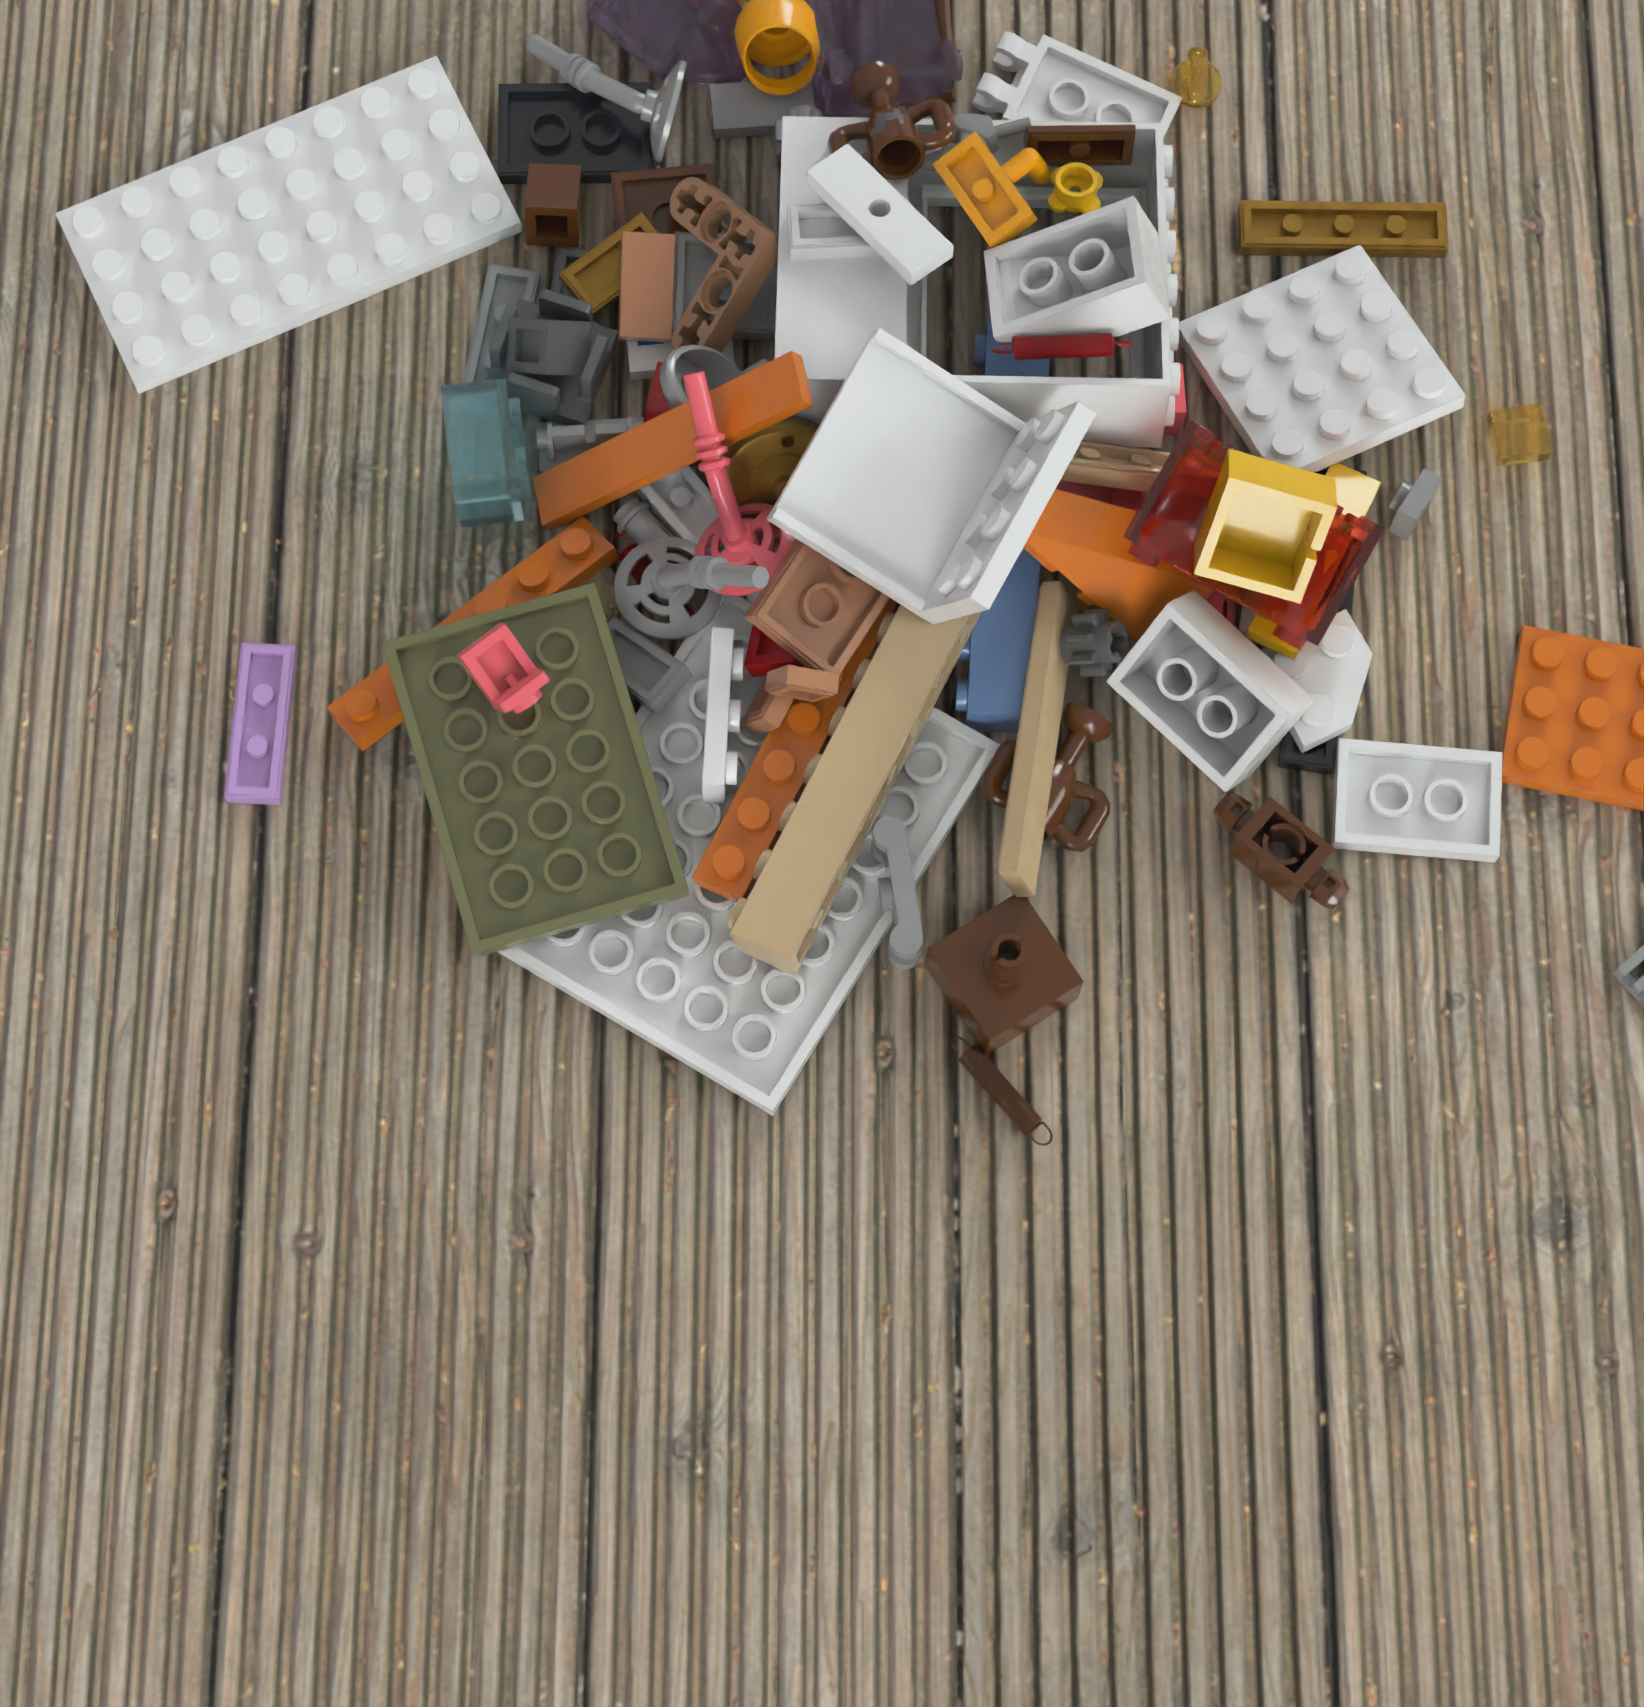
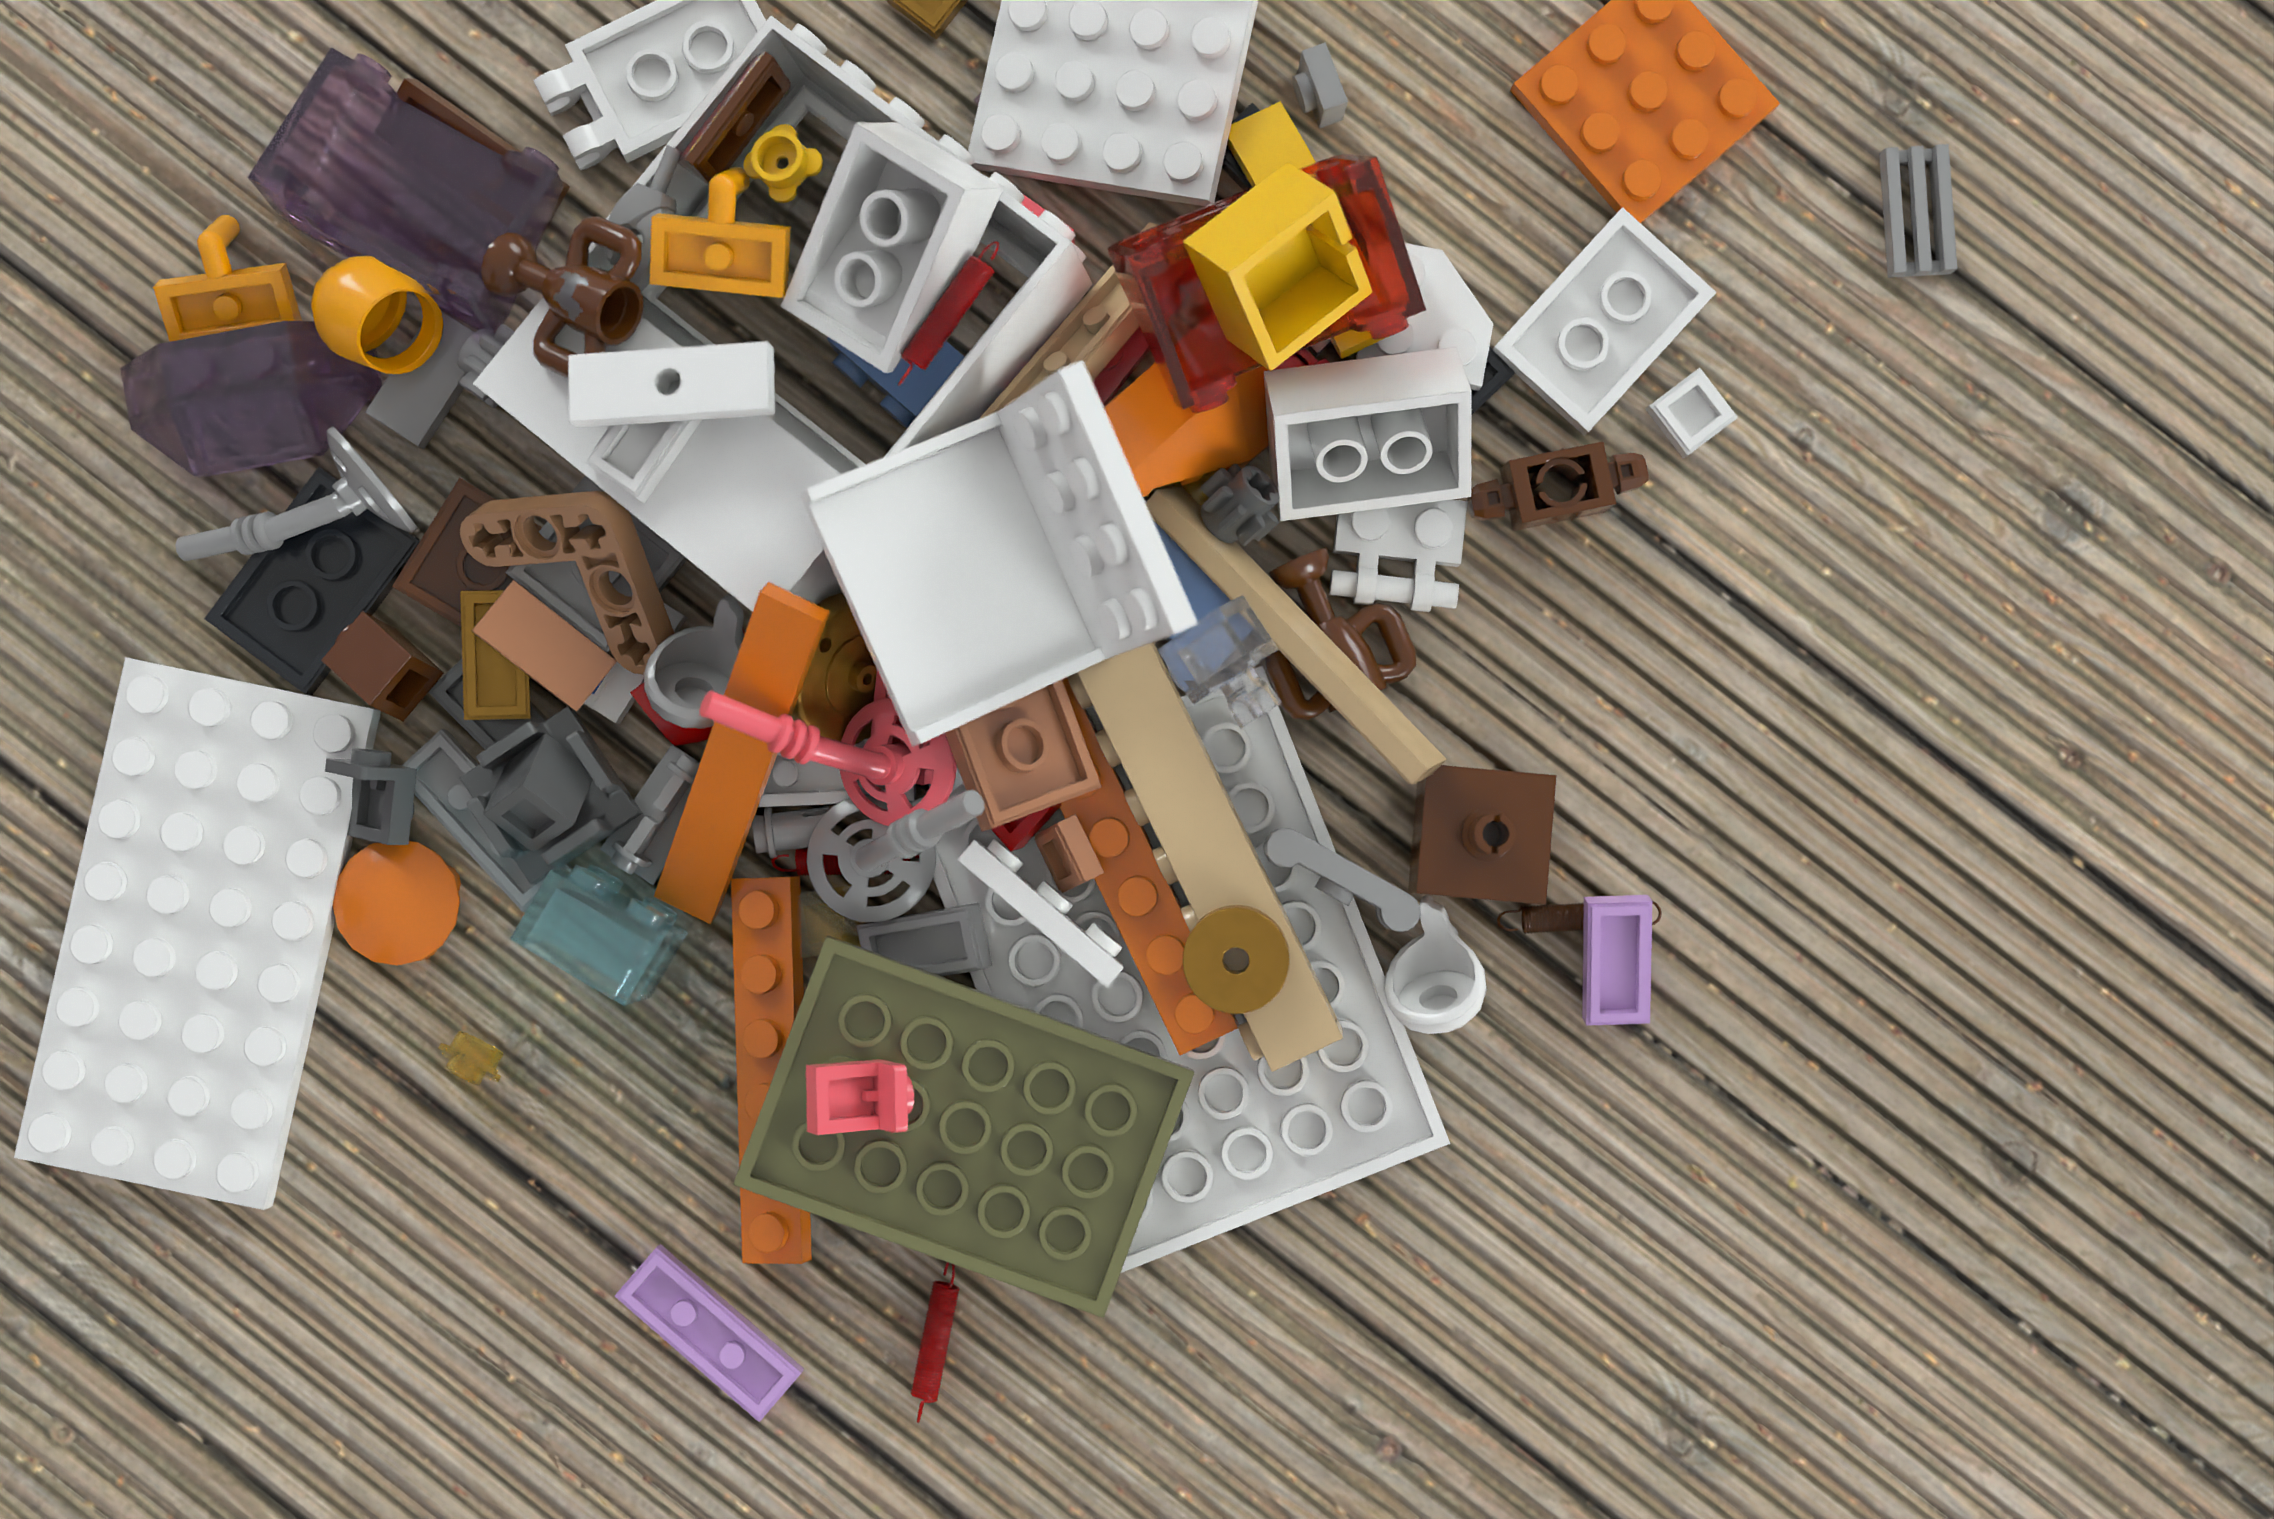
camera: 50 degrees left, 15 degrees up
(335, 440) = (471, 1058): none -> clear yellow plate
(366, 873) = (935, 1341): none -> red piece
(403, 325) = (396, 902): none -> orange dish
(469, 263) = (379, 795): none -> dark grey bracket
(788, 823) = (1229, 989): none -> pearl gold piece
(802, 683) = (1086, 823): nougat tile -> none
(881, 1015) = (1436, 977): none -> white hat
(983, 693) = (1222, 656): none -> clear brick
(990, 1133) = (1617, 960): none -> lavender tile
(1169, 778) = (1412, 533): none -> white plate
(1407, 908) = (1691, 413): none -> white tile

